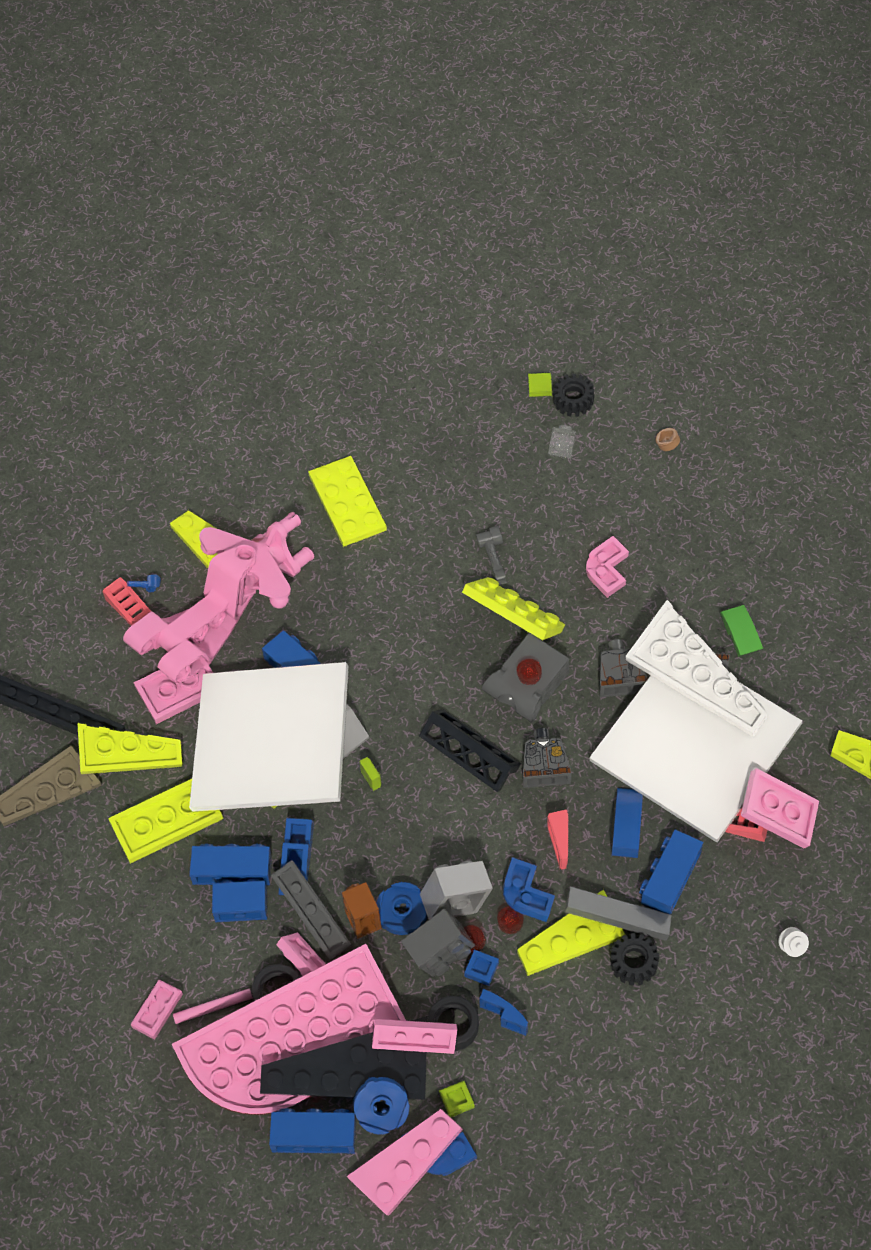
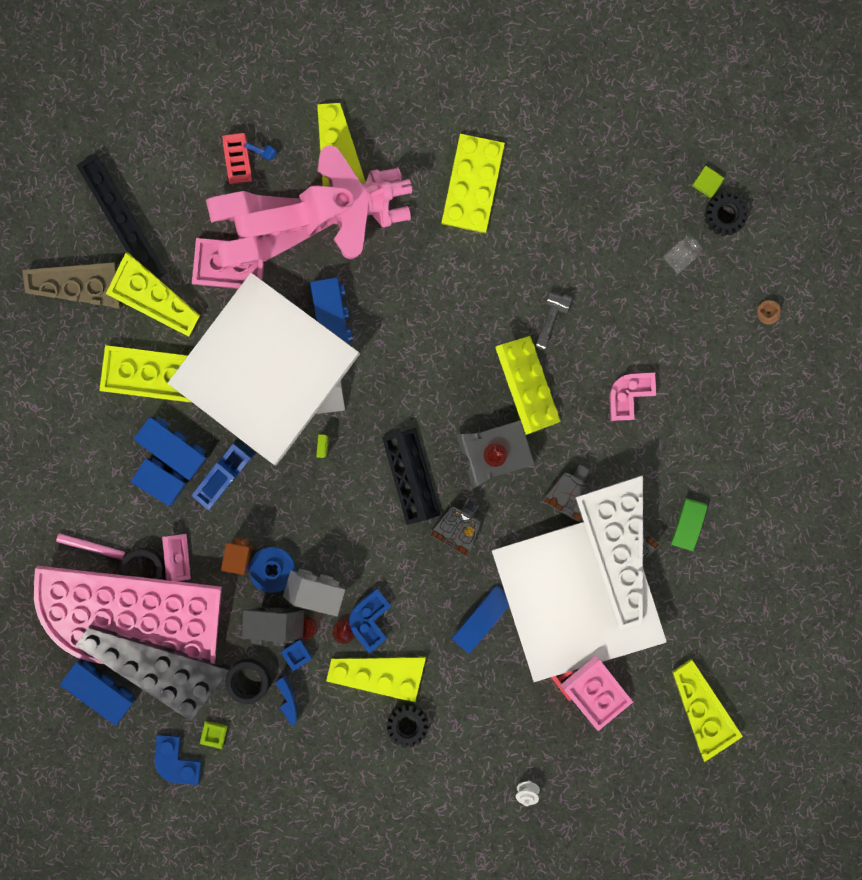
camera: 35 degrees right, 30 degrees up
(156, 1009) = (49, 523): bright pink plate -> none
(311, 910) = (205, 526): dark grey tile -> none
(381, 1089) = (164, 709): blue plate -> none
(401, 1165) = (144, 758): bright pink wing -> none
(414, 1036) = (207, 682): bright pink plate -> none
(558, 829) = (427, 591): coral slope -> none
(618, 913) = (420, 686): tile -> none
(671, 872) = (482, 681): blue brick -> none

